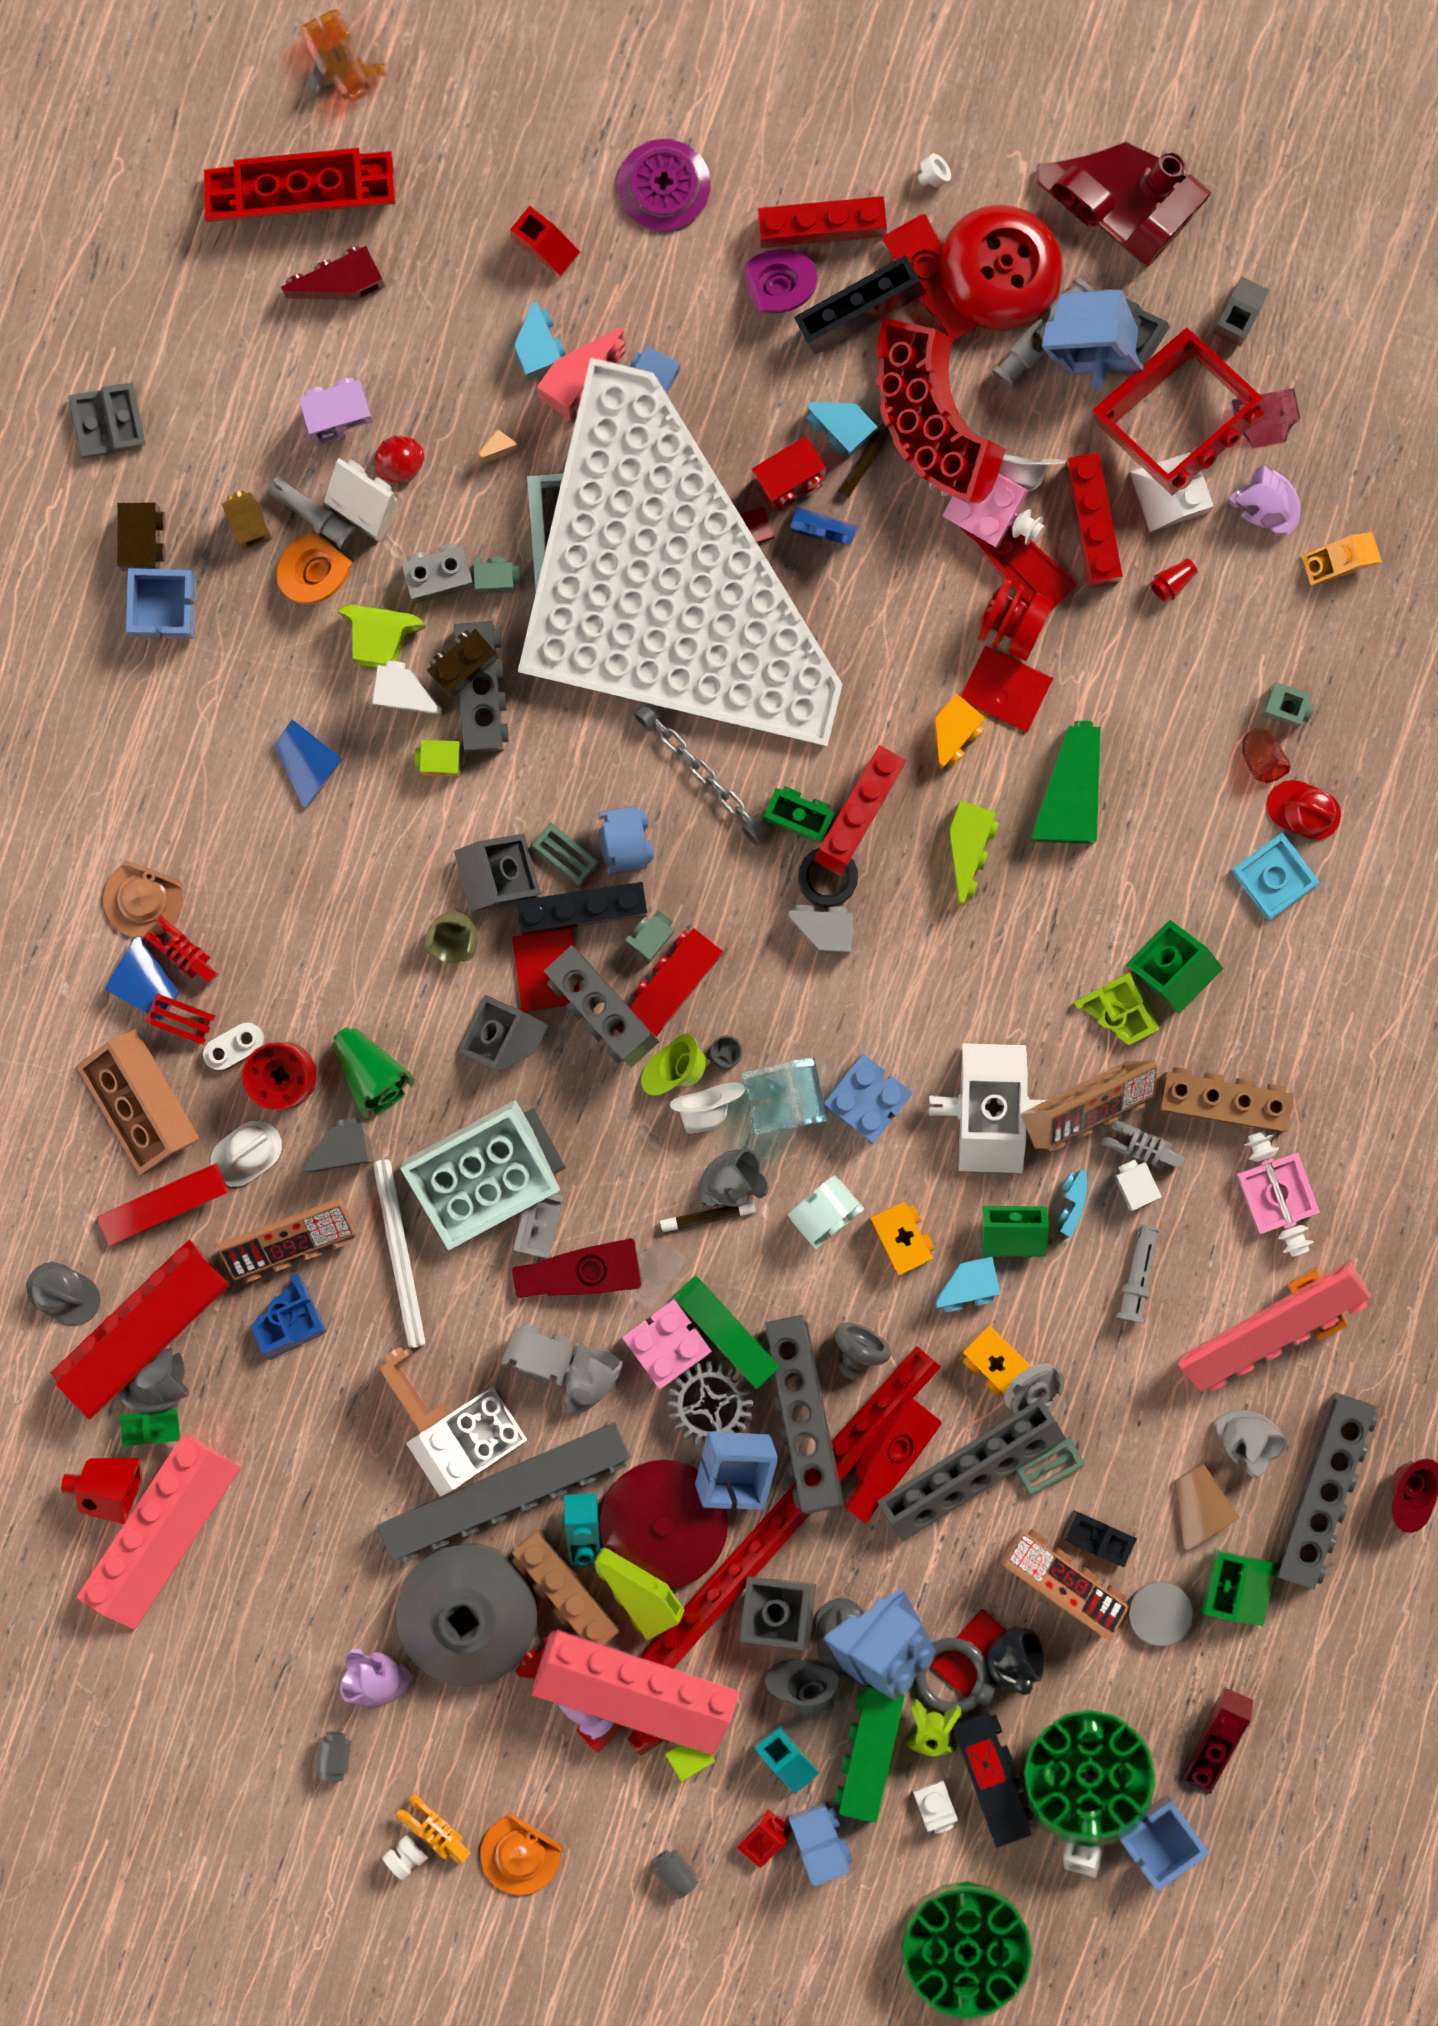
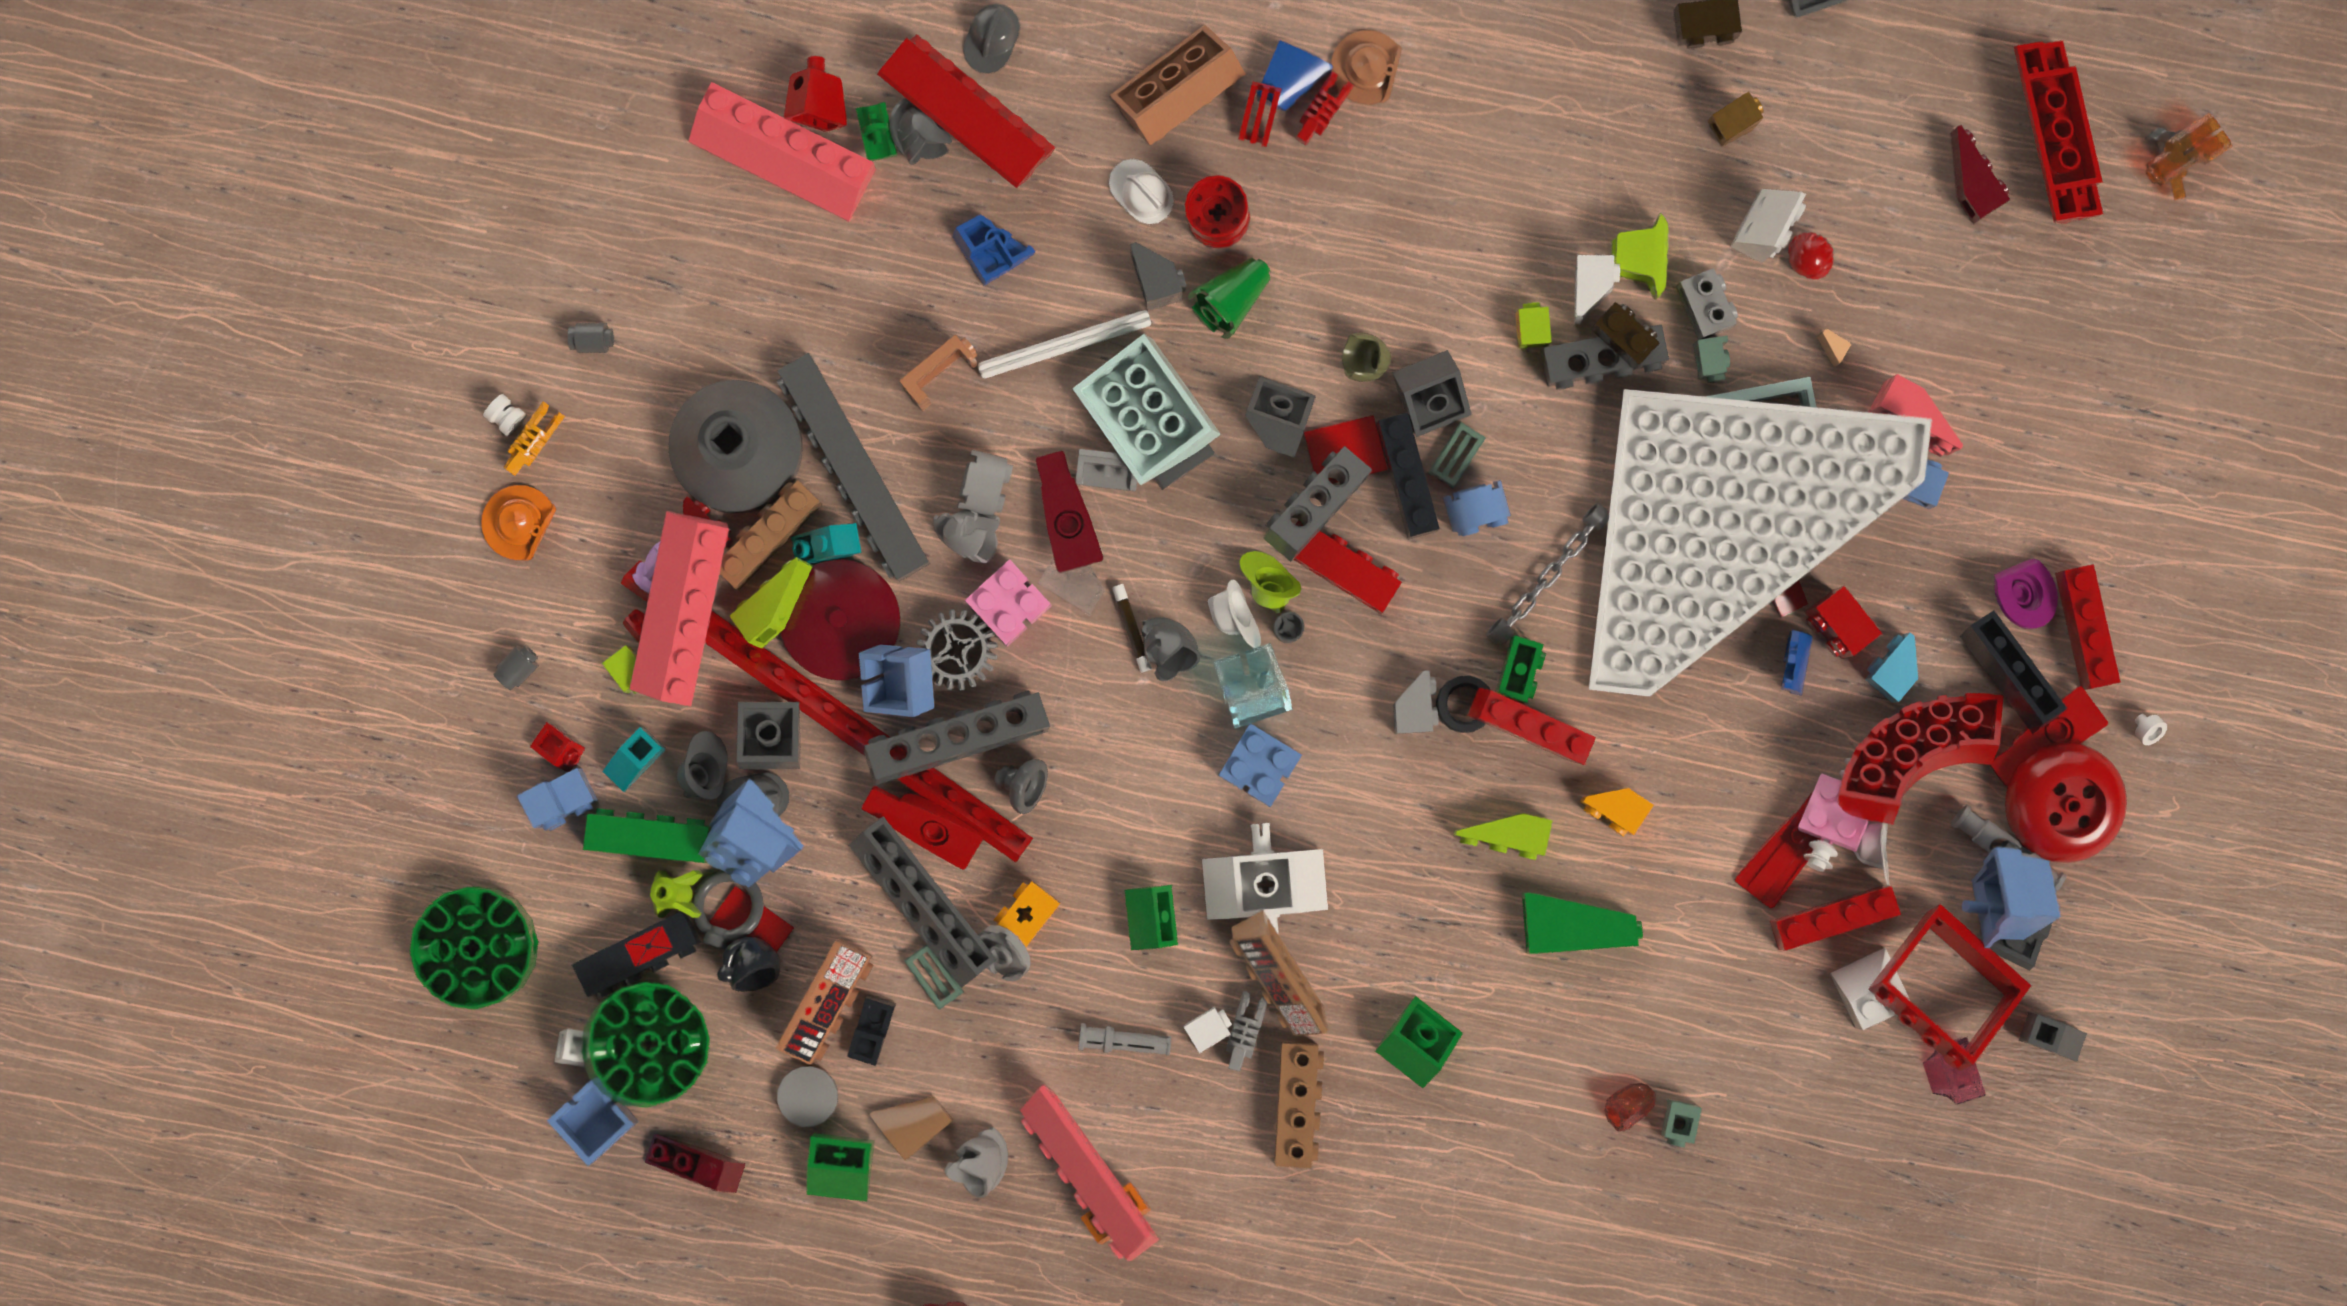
camera: 75 degrees right, 0 degrees up
(161, 603) = (1647, 49): medium blue piece -> none
(163, 1204) = (1085, 119): red slope -> none
(233, 1046) = (1240, 166): white plate -> none
(286, 1240) = (1064, 237): slope -> none
(306, 761) = (1514, 202): blue slope -> none
(312, 569) = (1696, 186): orange hat -> none
(324, 521) = (1743, 192): light grey pin -> none
(335, 410) = (1849, 188): lavender brick -> none
(373, 1679) = (666, 366): lavender helmet -> none
(466, 1441) = (896, 427): white slope -> none
(535, 343) = (1936, 370): medium azure slope -> none
(544, 241) = (2035, 367): red slope -> none
(651, 935) = (1390, 544): sand green brick -> none
(666, 208) = (2088, 490): magenta piece -> none
(726, 1332) = (1025, 657): green slope -> none
(825, 1211) = (1148, 736): light aqua brick -> none
(865, 461) = (1863, 694): dark brown bar -> none
(901, 1256) = (1114, 814): light orange brick -> none
(935, 1807) = (604, 904): white bracket -> none
(969, 1282) = (1098, 881): medium azure slope -> none
(1006, 689) = (1663, 853): red piece -> none
(1015, 619) = (1731, 853): red wheel -> none
(1076, 1193) = (1195, 971): medium azure slope -> none
(1121, 1008) = (1373, 996): lime slope -> none
(1128, 195) = (2150, 917): dark red panel -> none
(1171, 581) = (1786, 999): red cone -> none
(1270, 500) = (1874, 1084): lavender helmet -> none
(1275, 876) = (1516, 1129): medium azure tile -> none
(1278, 1193) = (1215, 1164): bright pink plate -> none
(1304, 809) = (1582, 1149): red piece -> none
(1341, 558) = (1828, 1159): light orange slope -> none
(1342, 1410) = (957, 1233): dark grey brick -> none

